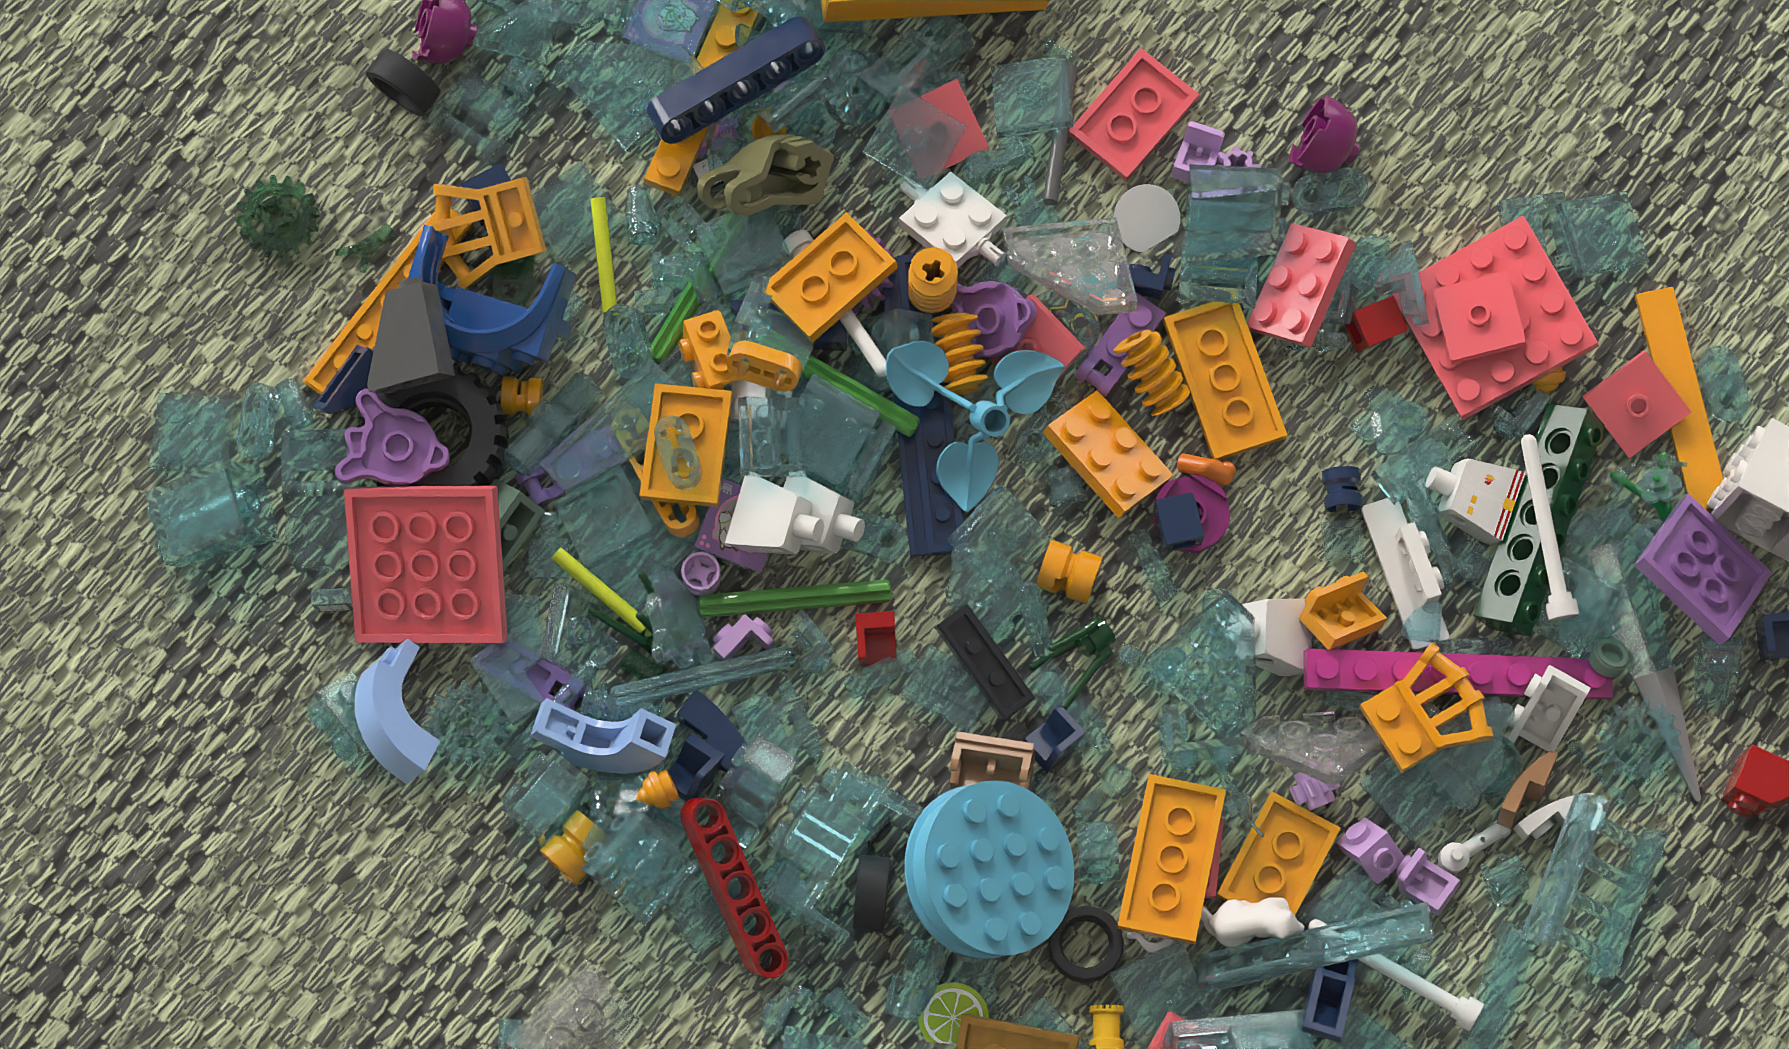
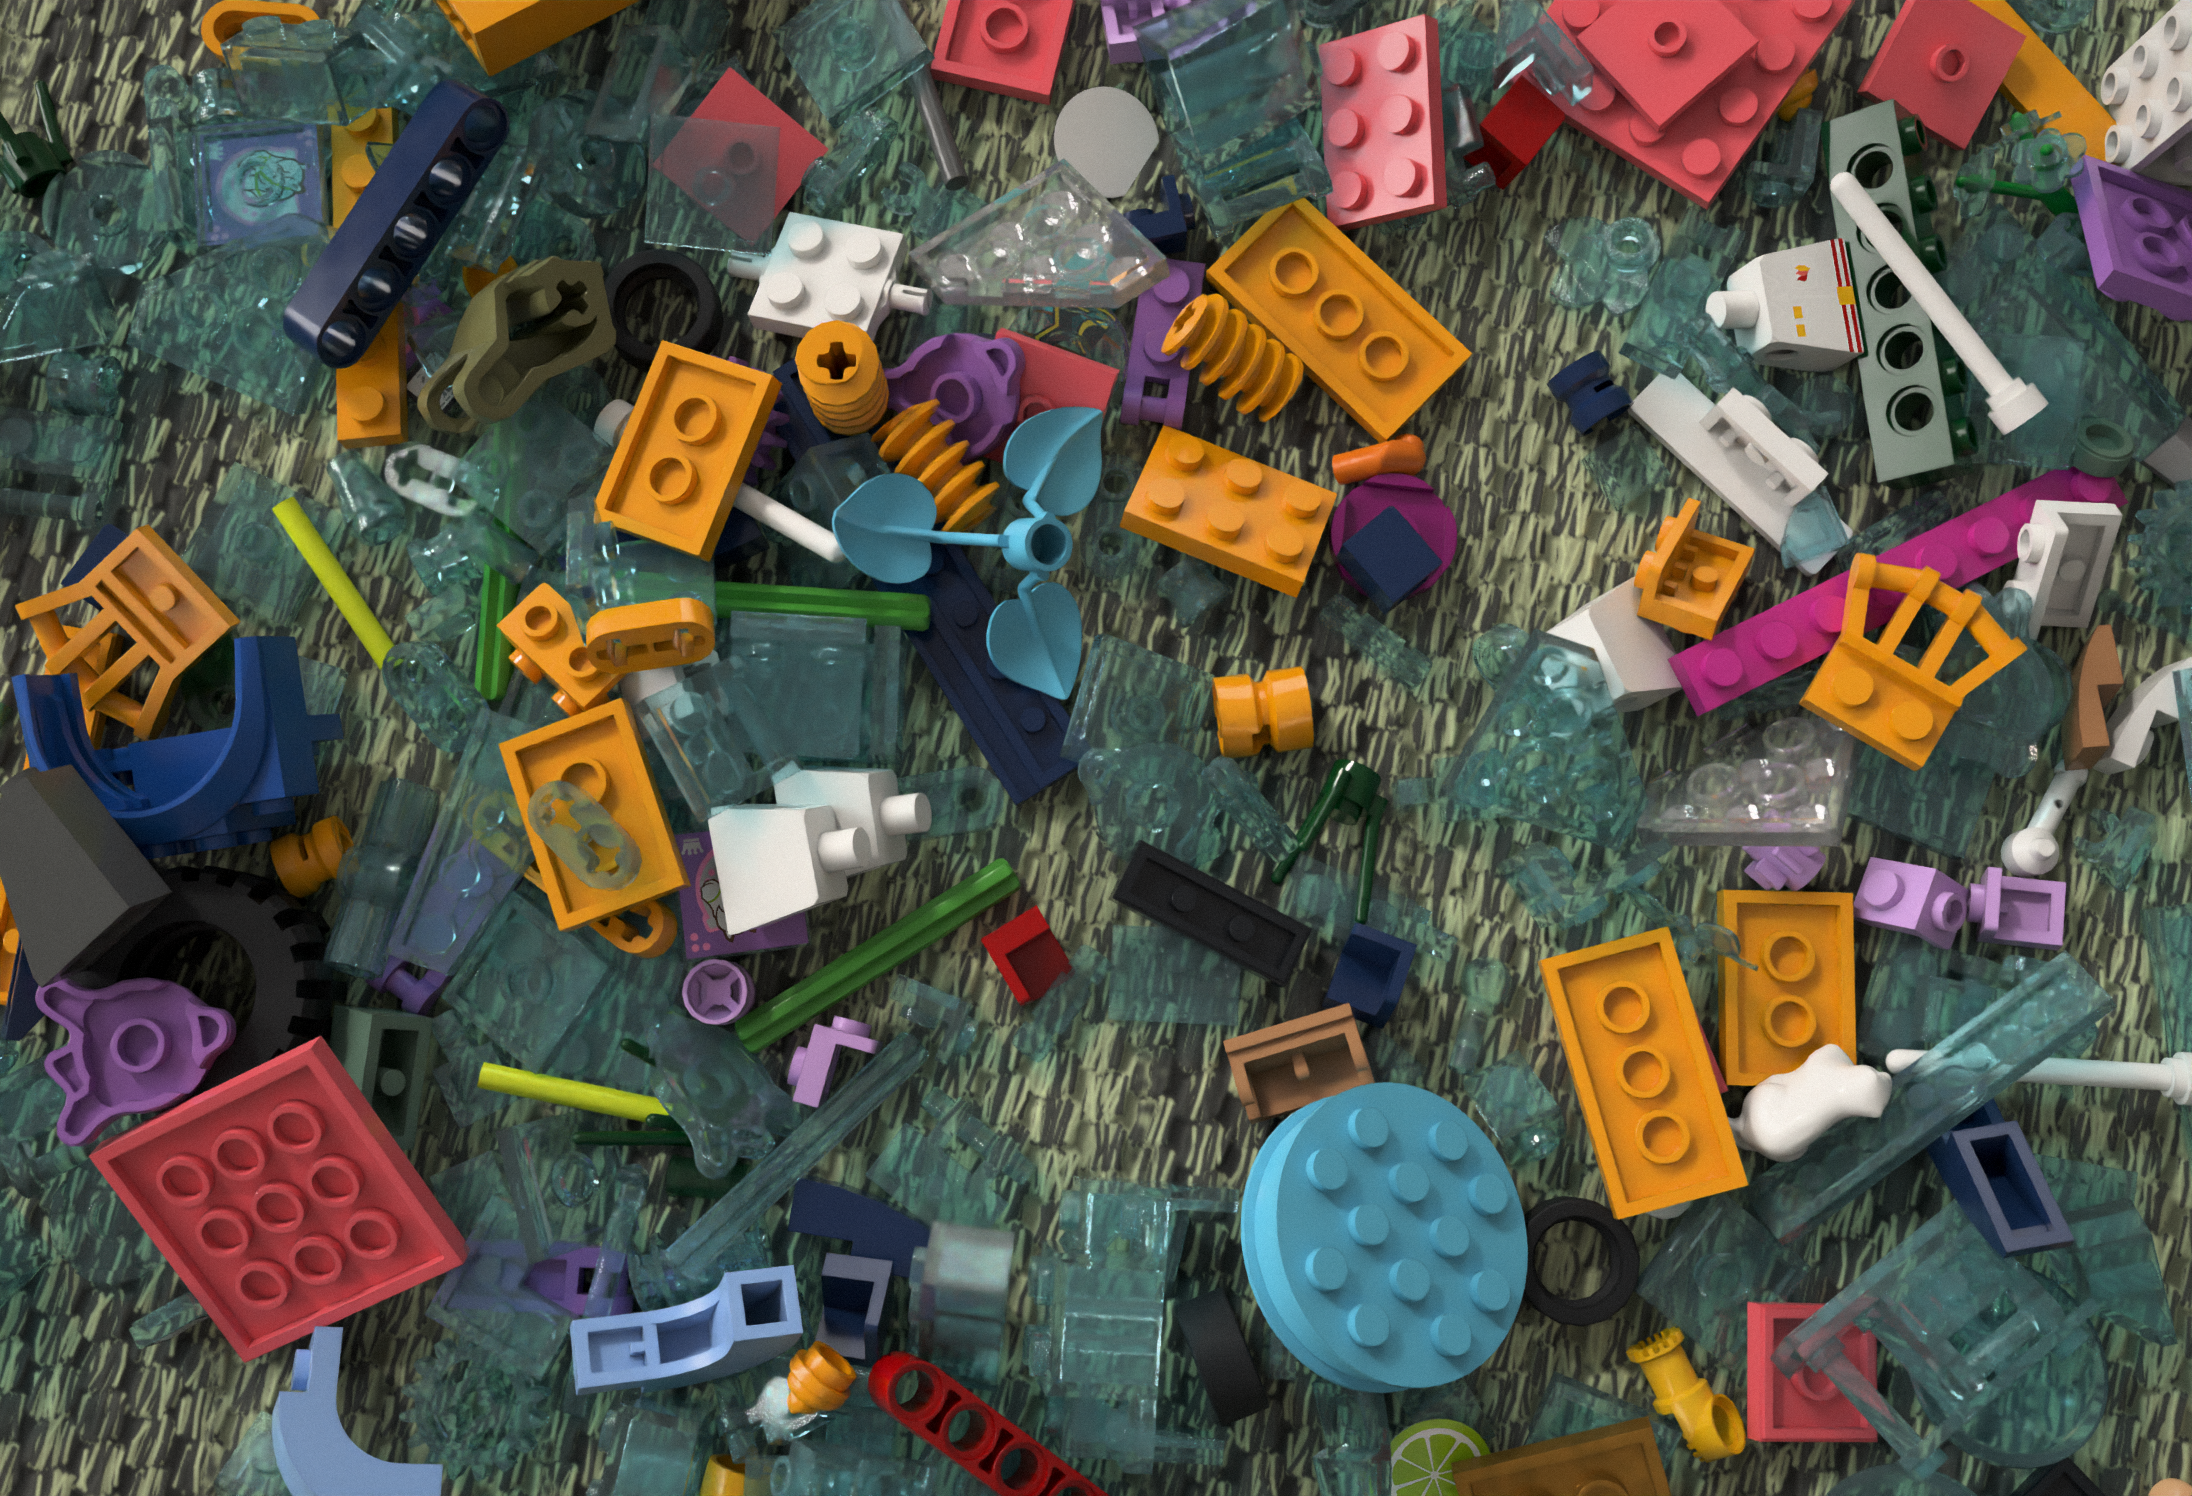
camera: 25 degrees left, 5 degrees up
(872, 171) = (653, 266): none -> black tyre

